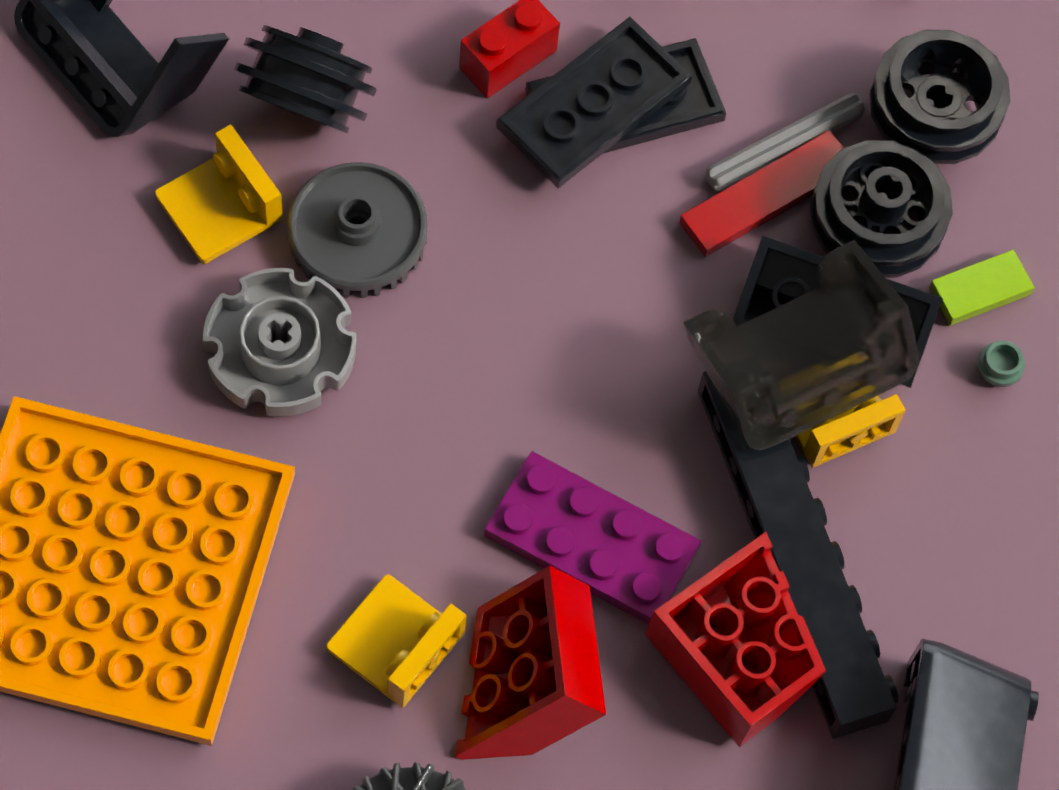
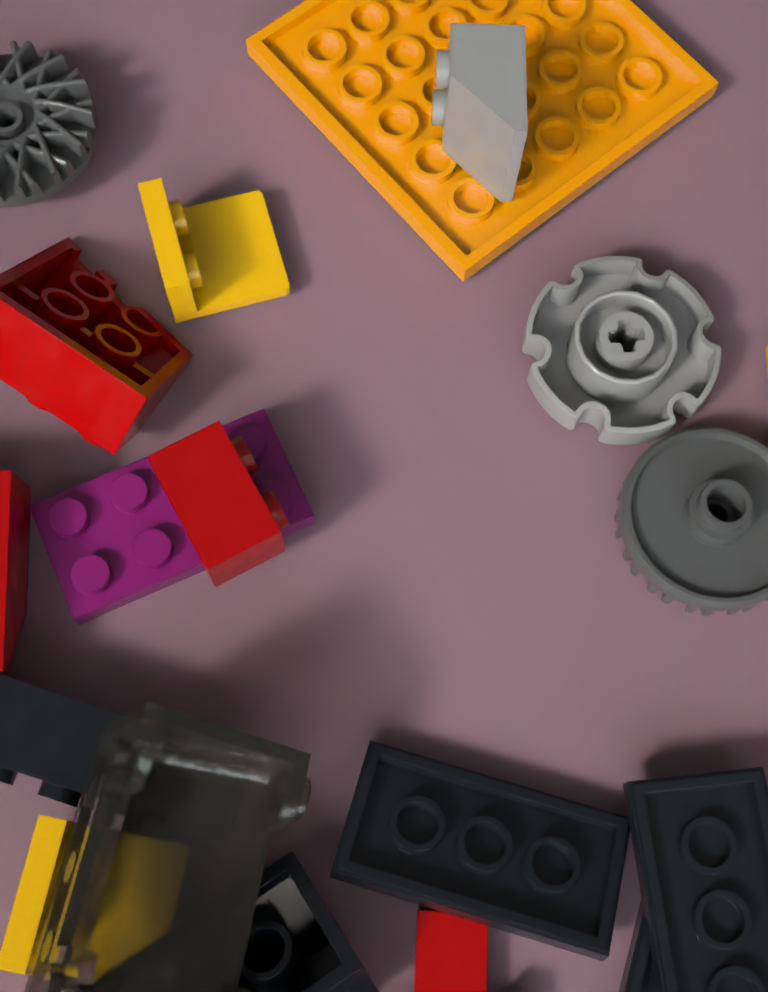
camera: 130 degrees right, 5 degrees up
(179, 501) = (483, 102): none -> light grey slope
(576, 488) = (219, 503): none -> red brick
(649, 239) = (484, 850): none -> black tile

